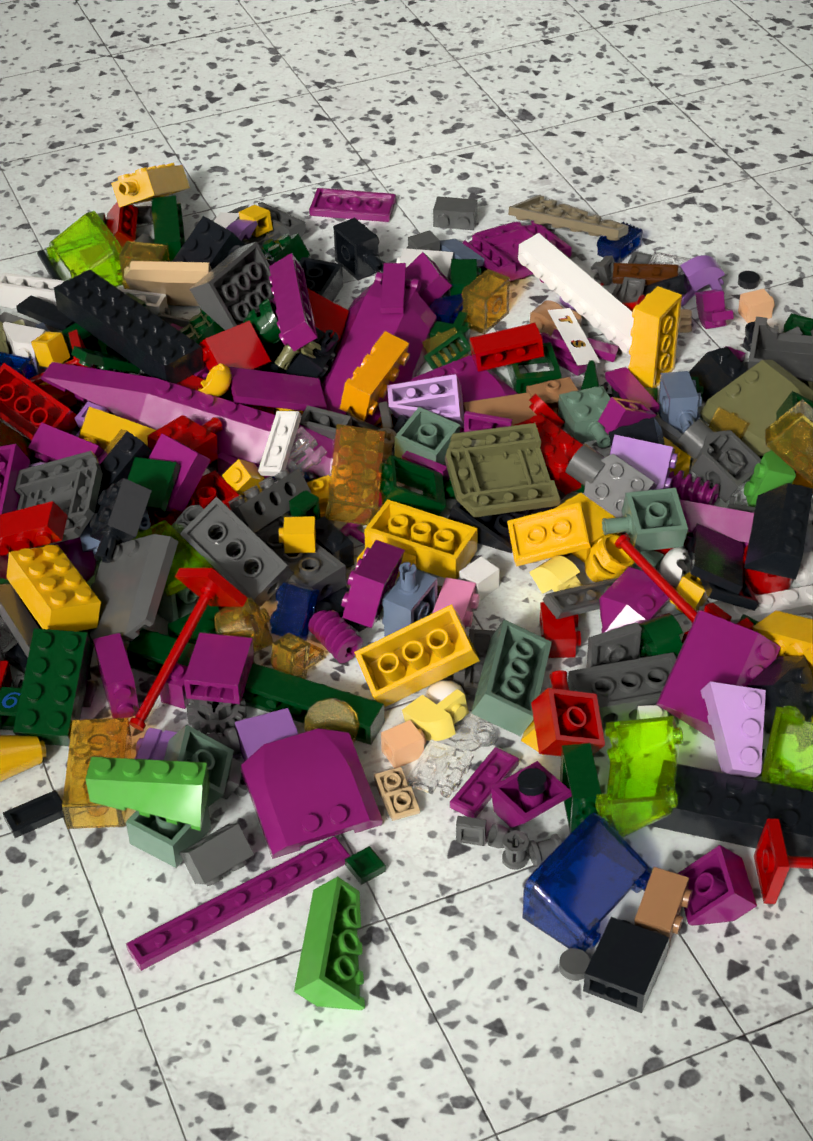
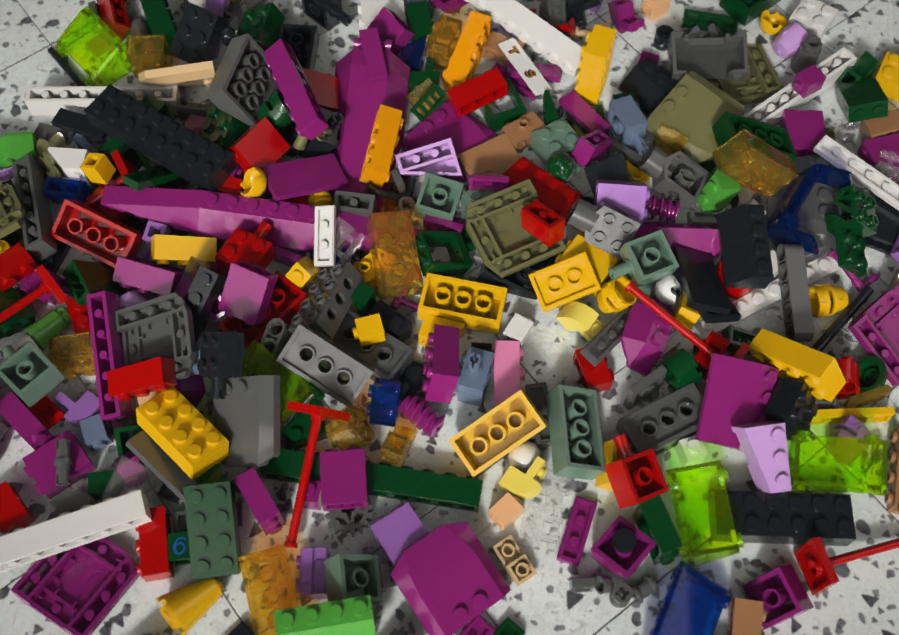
camera: 15 degrees left, 20 degrees up
(156, 476) = (233, 310): dark green tile -> none
(228, 738) = (364, 543): dark grey wheel -> none
(332, 715) = (446, 508): clear yellow tile -> none
(515, 305) = (468, 50): none -> light orange wedge
(535, 463) = (542, 223): none -> red brick
(540, 407) = (524, 150): red plate -> none
(584, 428) = (561, 166): none -> dark green piece

